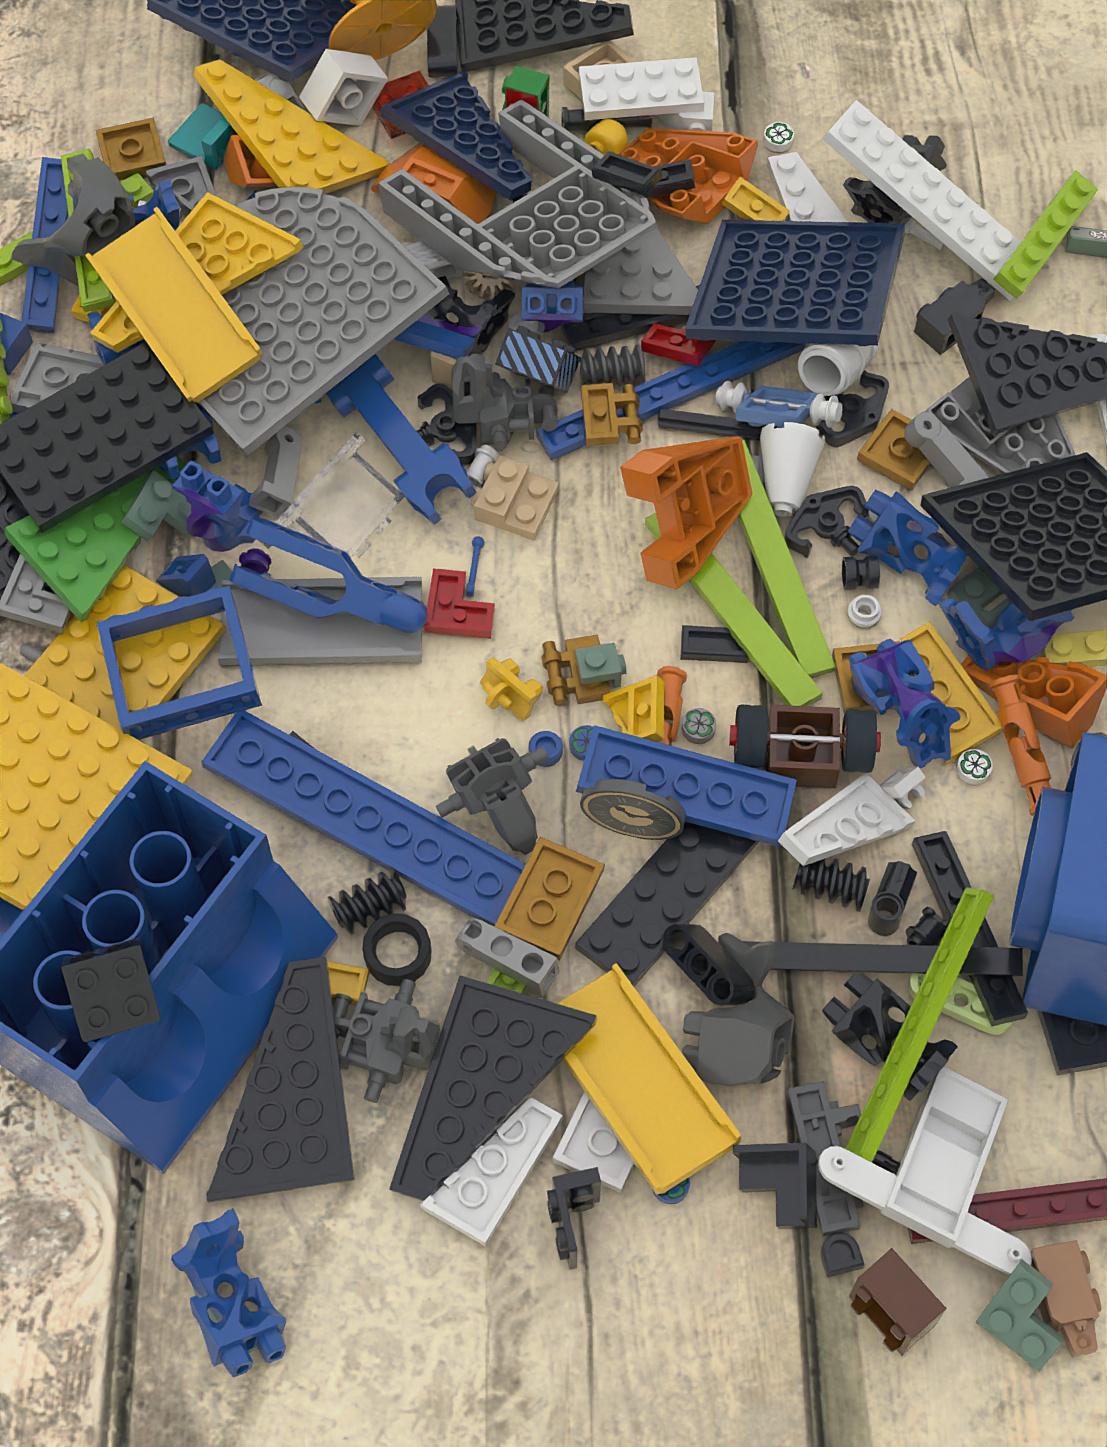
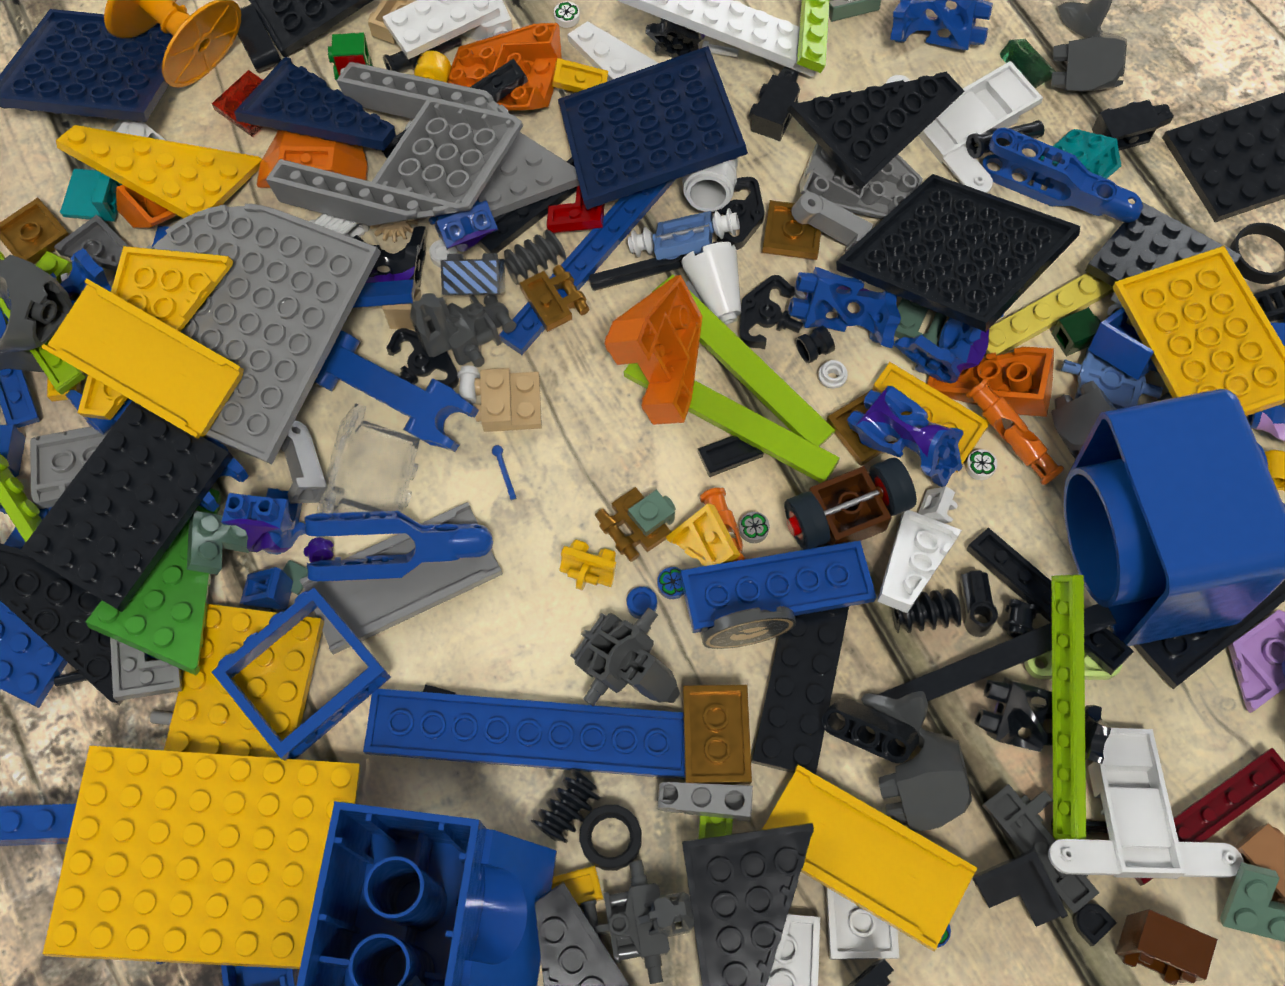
camera: 25 degrees left, 5 degrees up
(343, 87) = (192, 108): white brick -> none
(451, 613) = (509, 522): red plate -> none
(626, 173) = (474, 90): black tile -> none

